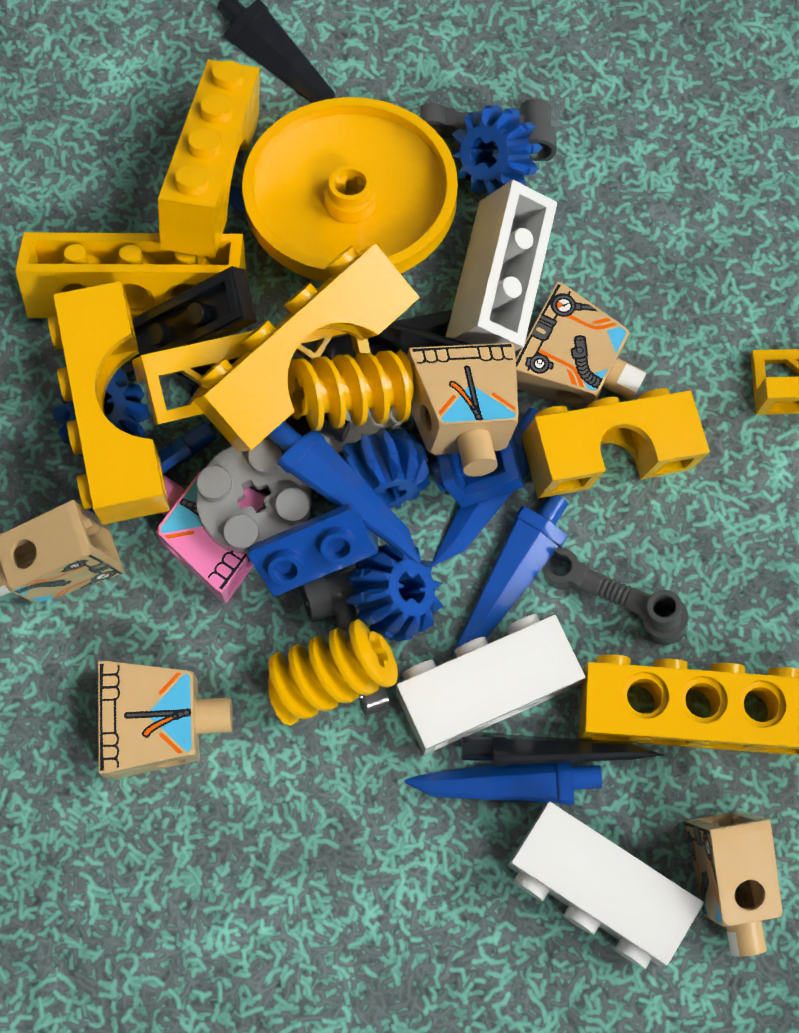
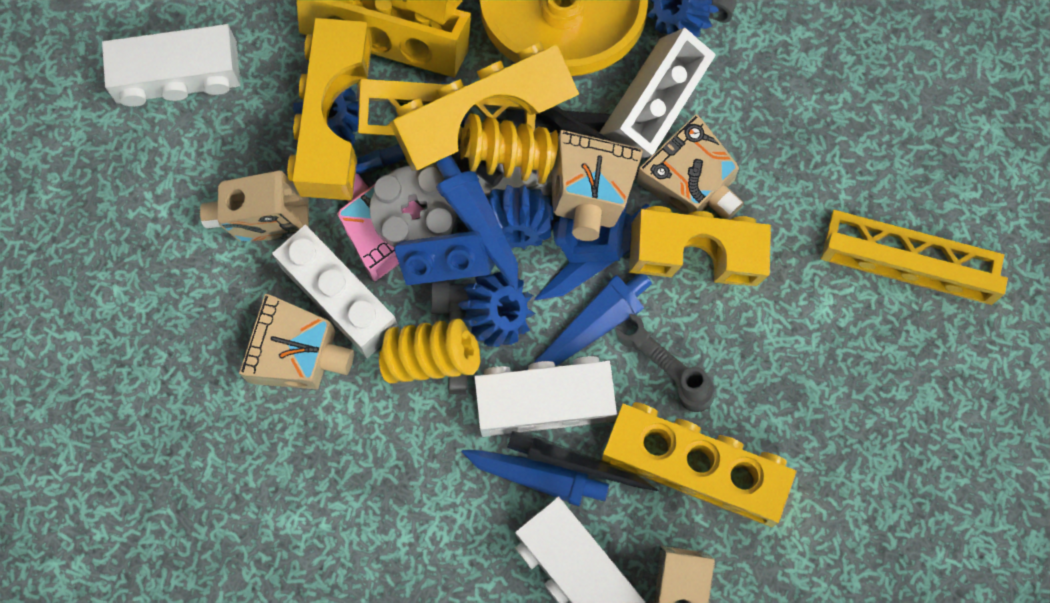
camera: 25 degrees right, 0 degrees up
(184, 630) = (335, 290): none -> white brick
(196, 315) = (420, 62): black tile -> none

